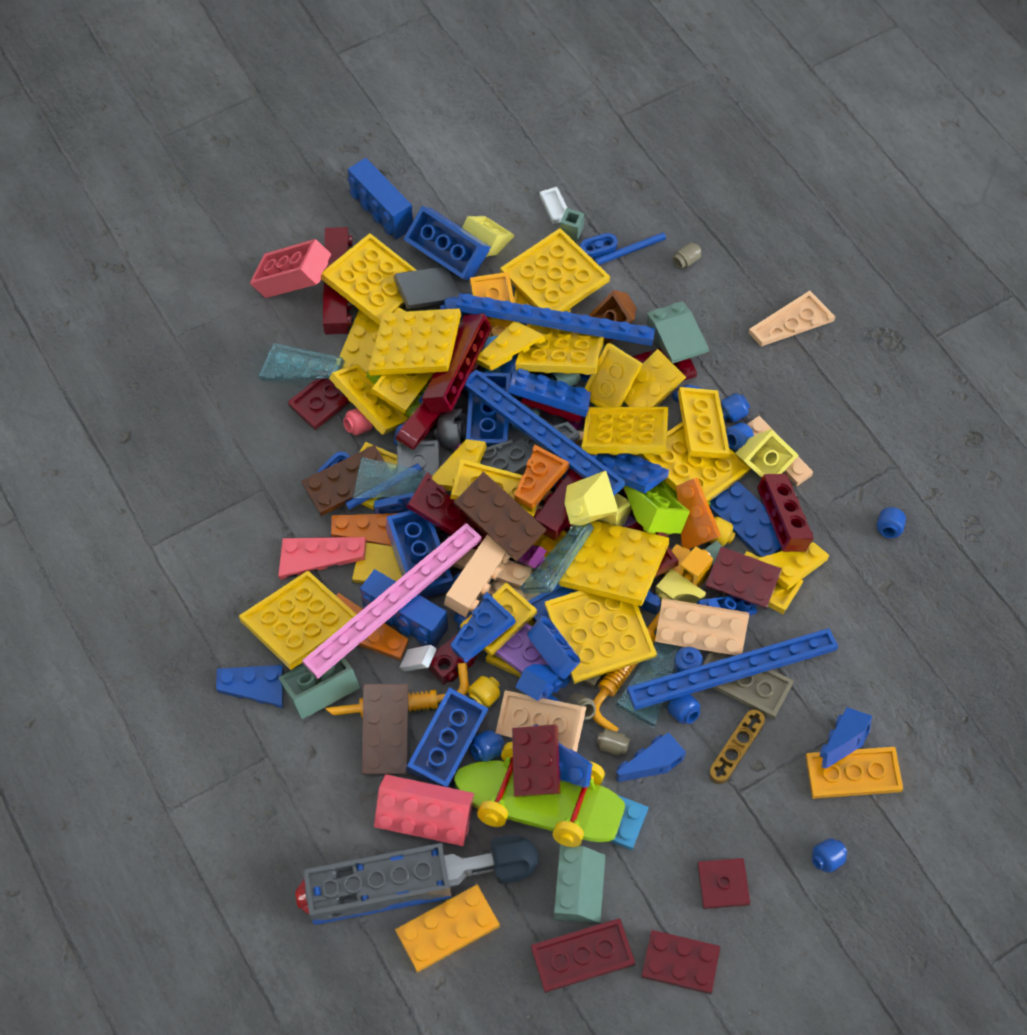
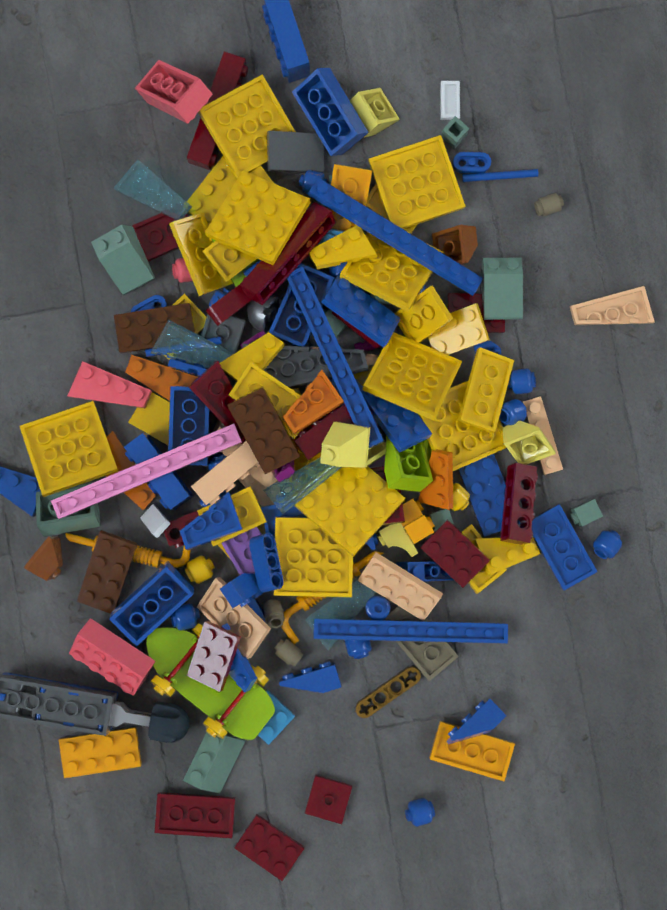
camera: 20 degrees right, 25 degrees up
(292, 430) = (123, 258): none -> sand green slope
(313, 739) = (47, 559): none -> dark orange slope
(848, 542) = (562, 547): none -> blue plate
(855, 501) = (585, 513): none -> sand green brick

